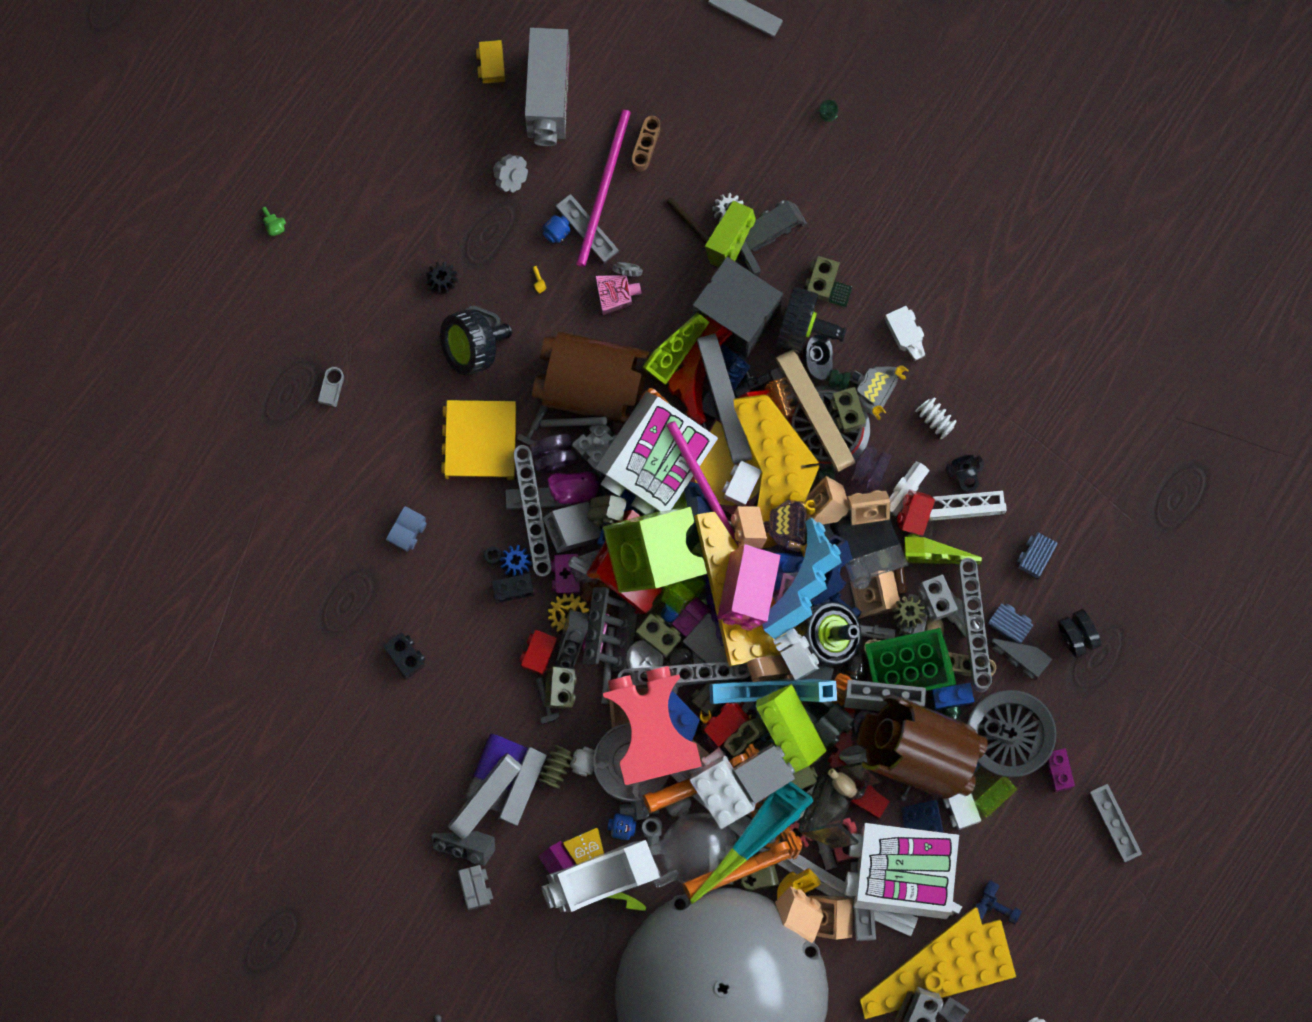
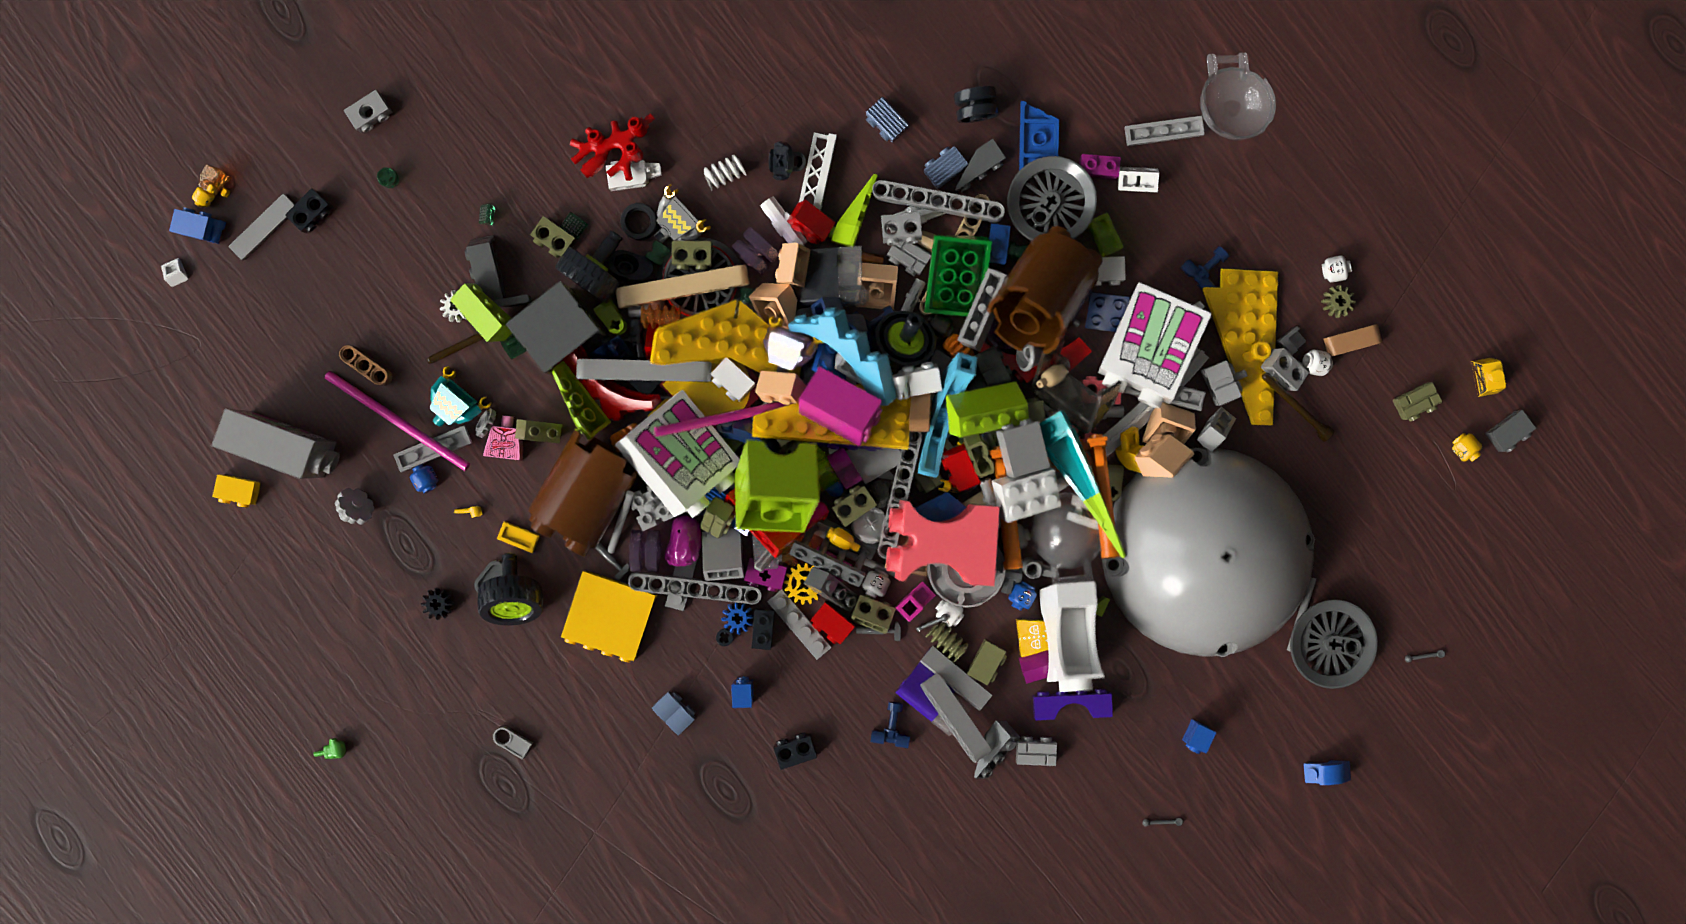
camera: 70 degrees left, 10 degrees up
(446, 586) = (742, 693): none -> blue brick
(447, 741) = (891, 734): none -> dark blue bar
(523, 885) = (1047, 705): none -> dark purple arch
(527, 622) = (799, 624): none -> light grey plate
(528, 333) = (518, 537): none -> yellow tile
(546, 812) = (986, 662): none -> olive brick
(578, 756) = (944, 617): none -> dark grey hinge
(584, 724) = (915, 601): none -> dark pink brick
(590, 682) = (876, 583): none -> light grey head
(623, 634) = (842, 539): none -> yellow plant
(635, 319) = (538, 431): none -> olive brick
(637, 232) = (451, 402): none -> teal torso
(706, 272) = (513, 346): none -> clear green slope
(766, 353) = (609, 315): none -> lime piece
(776, 44) = (306, 206): none -> black brick
(824, 211) = (486, 214): none -> clear green slope
(843, 961) = (1216, 429): none -> light grey brick
(866, 339) = (638, 207): none -> black tyre
(880, 64) = (357, 111): none -> light grey brick
(891, 953) = (1223, 382): none -> light grey brick
(902, 612) = (909, 253): olive gear -> none
(923, 296) = (619, 139): none -> red plant
(1060, 811) = (1138, 179): none -> white brick
(1071, 702) = (1037, 134): none -> blue wing
(1166, 879) = (1235, 100): none -> clear windscreen

